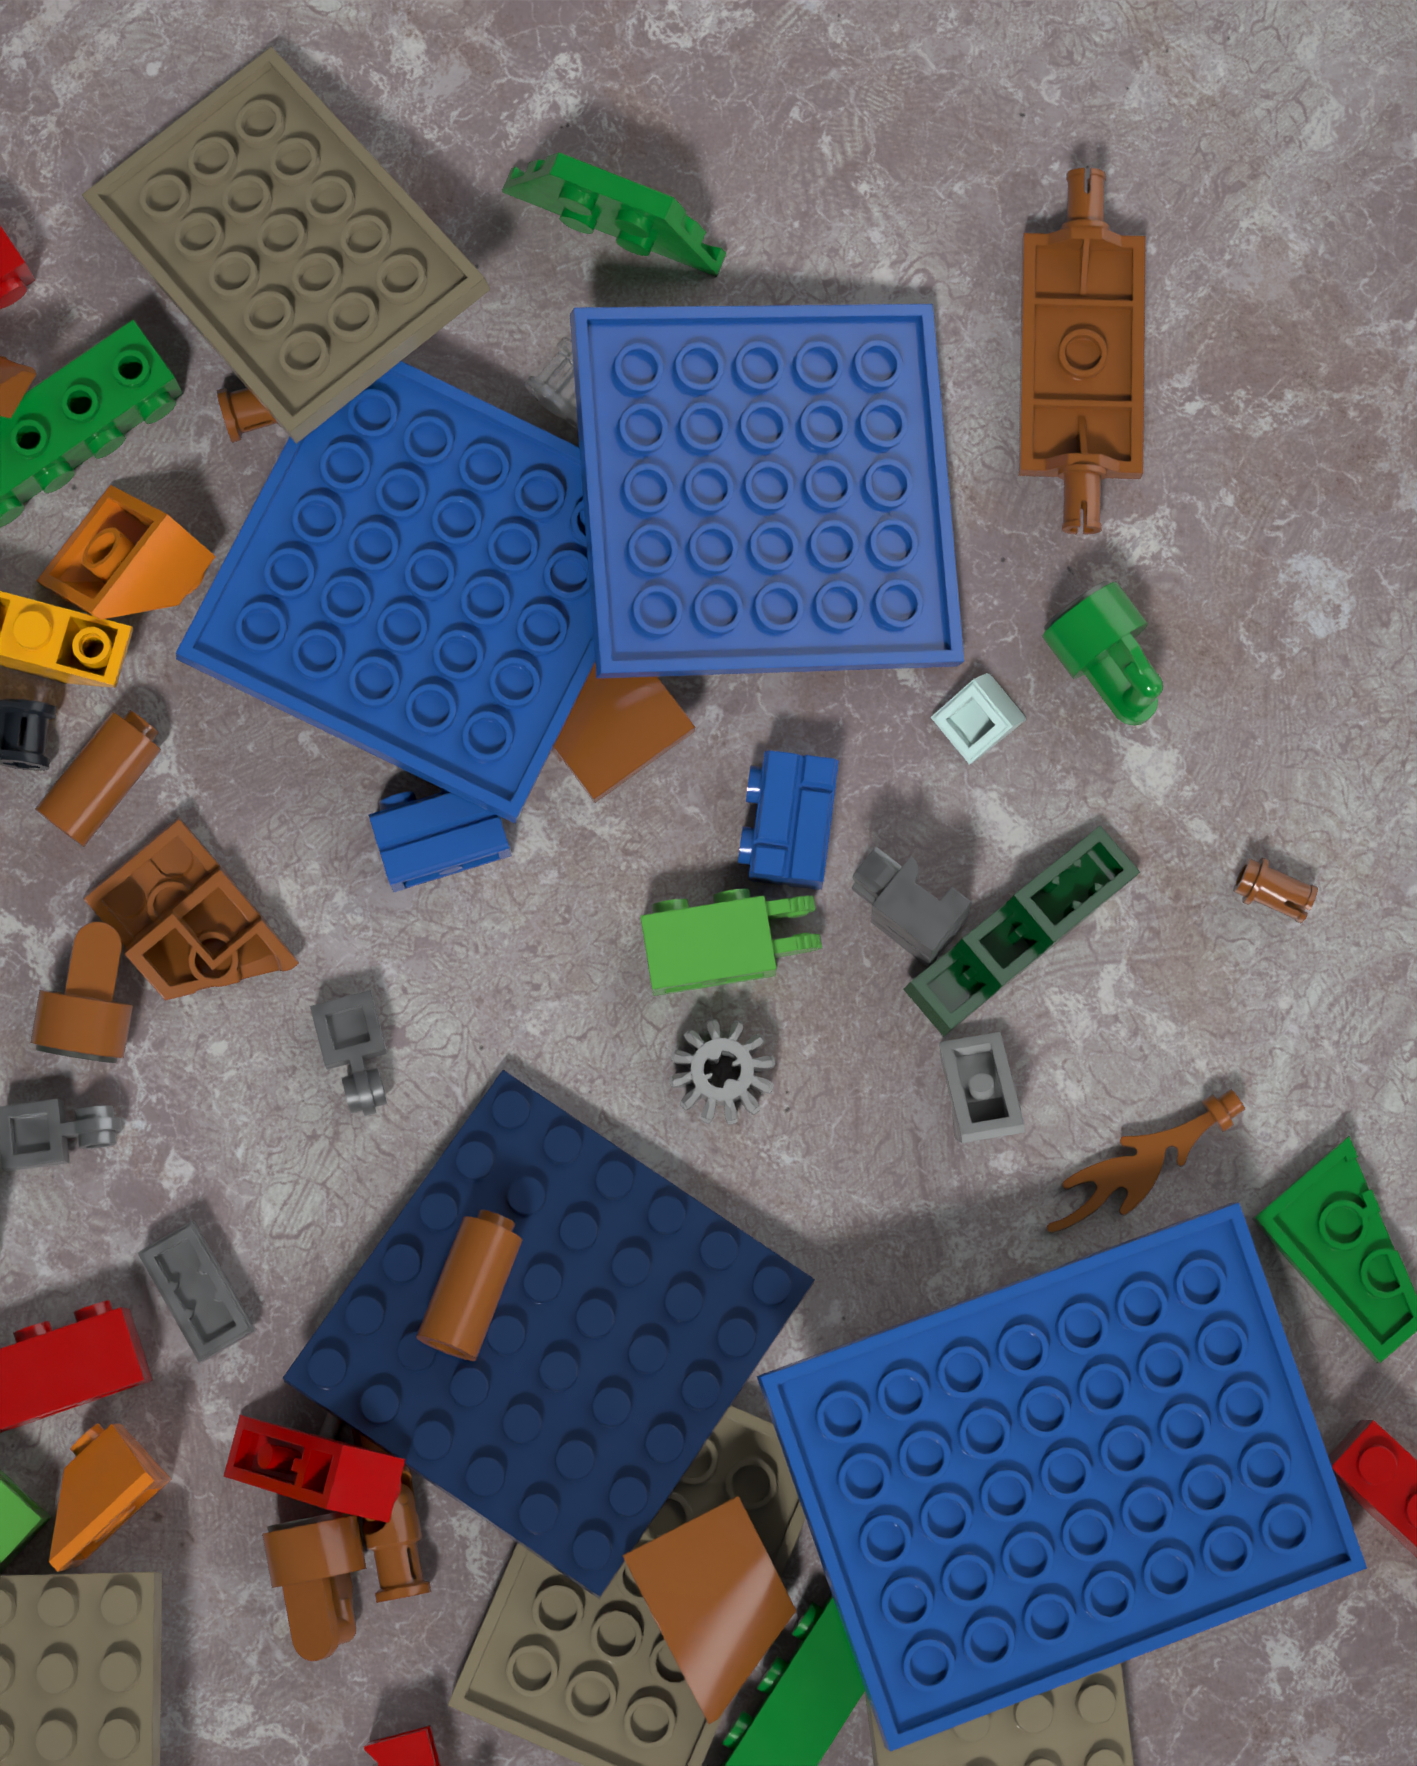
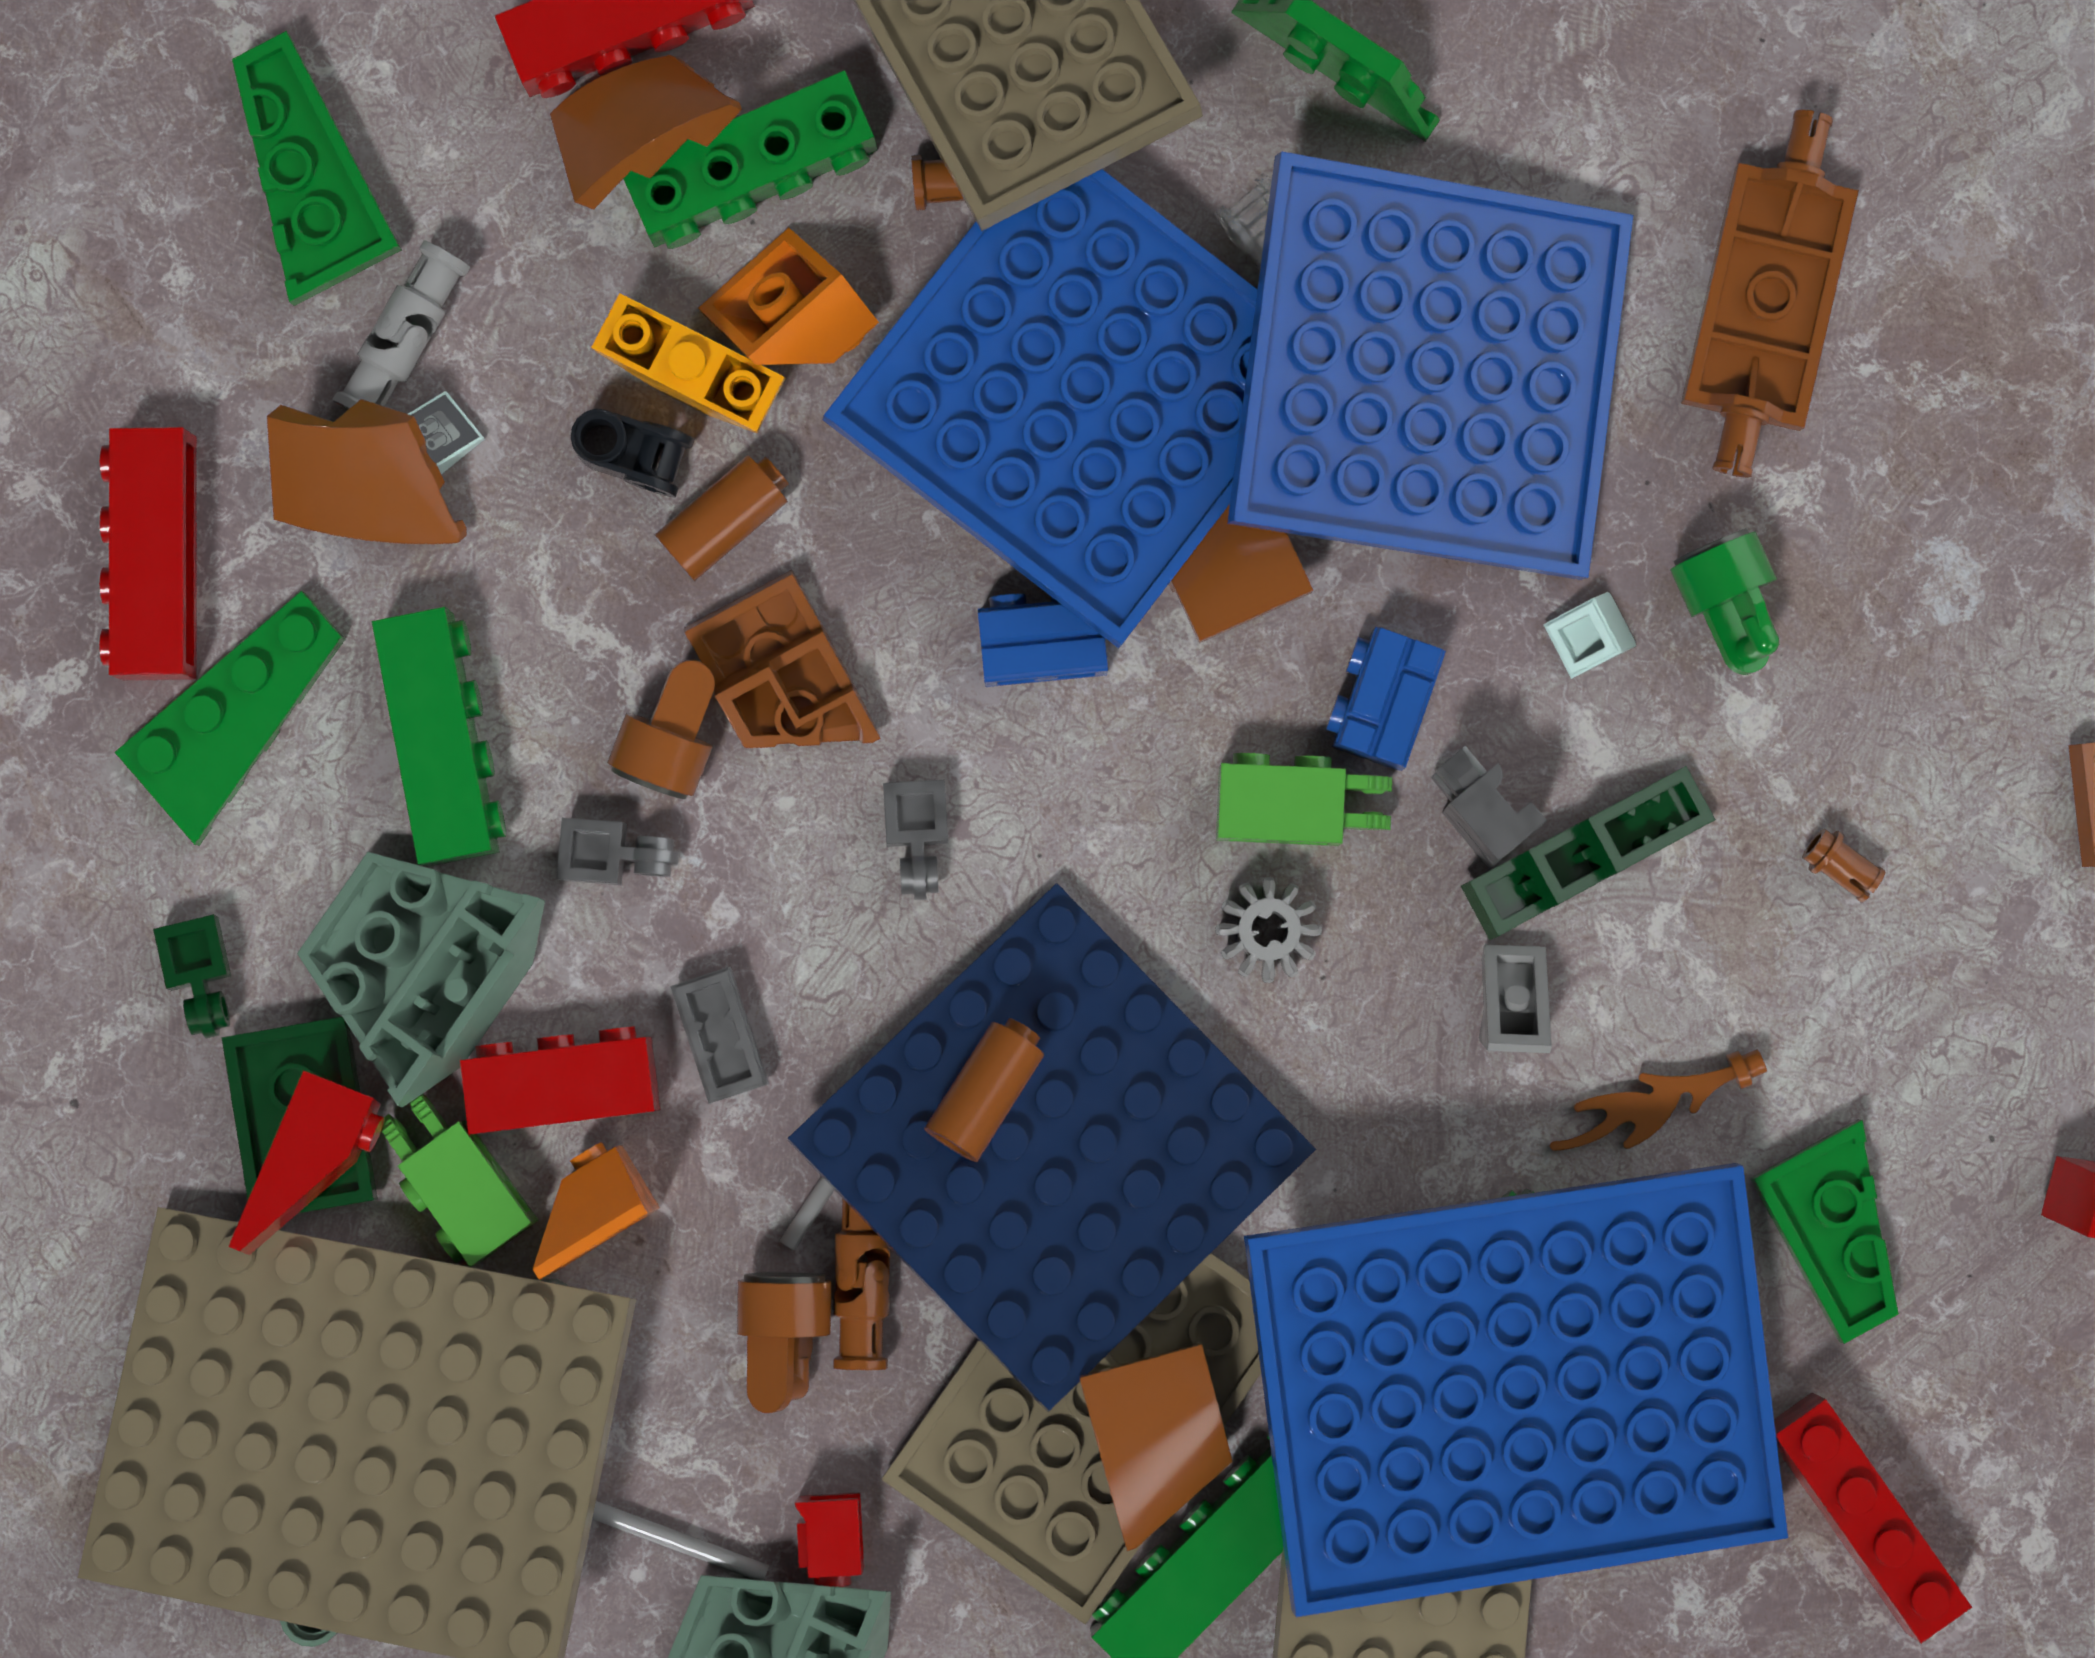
camera: 15 degrees right, 5 degrees up
(315, 1469) = (800, 1231): red slope -> none

